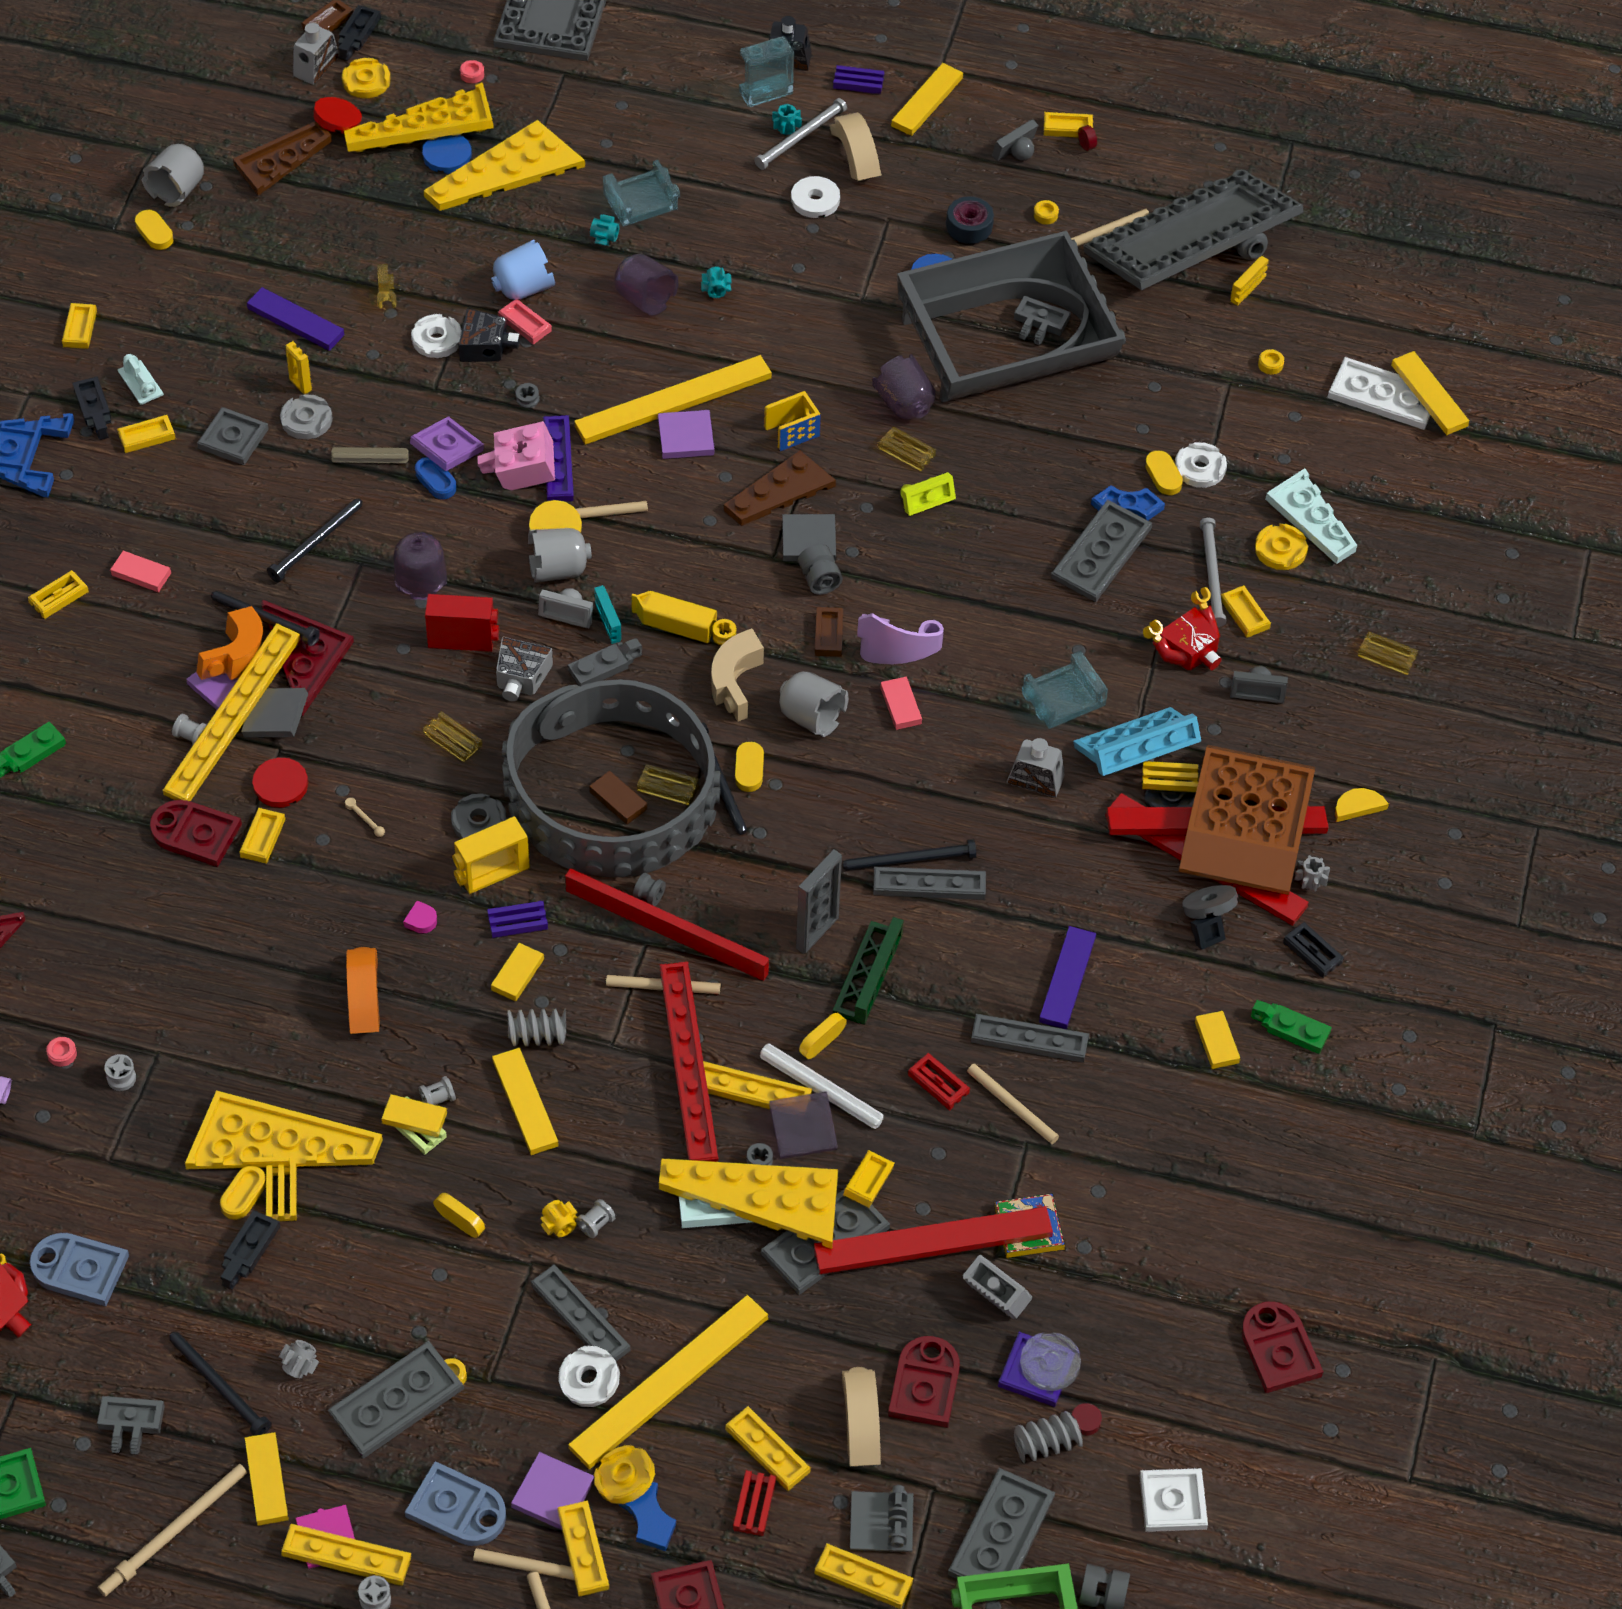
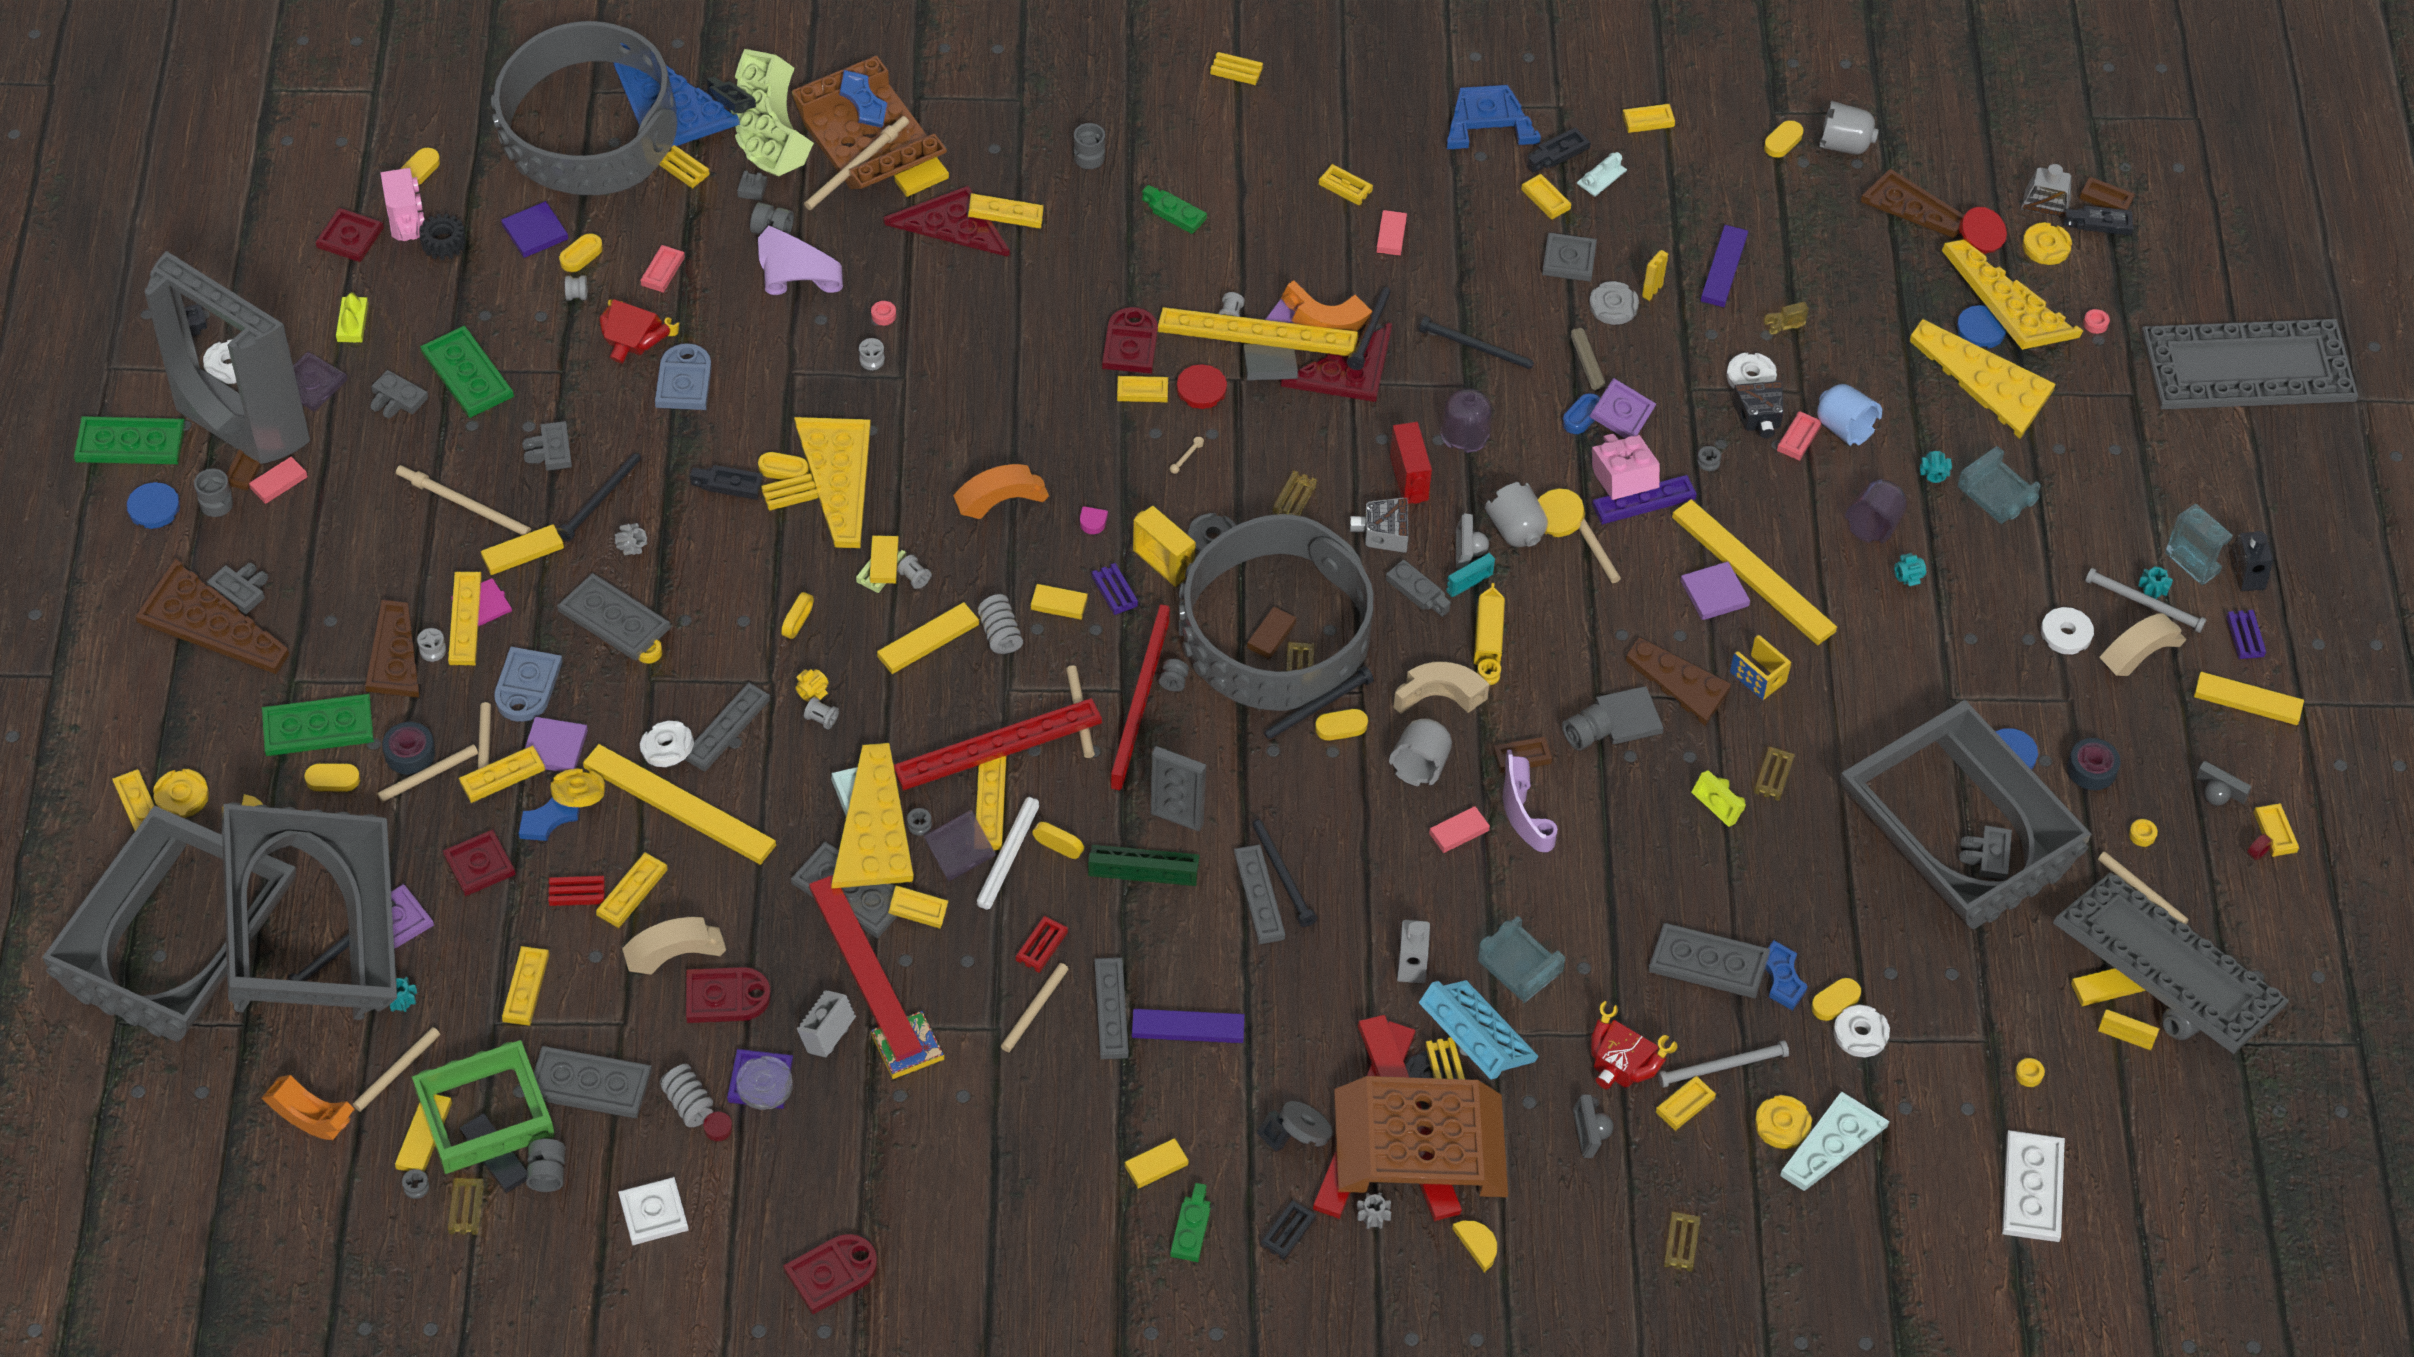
camera: 75 degrees right, 0 degrees up
(882, 1520) = (579, 988): dark grey hinge -> none
(905, 388) = (1837, 748): clear purple cylinder -> none
(1197, 286) = (2103, 986): none -> yellow tile
(1430, 393) = (2043, 1223): yellow tile -> none

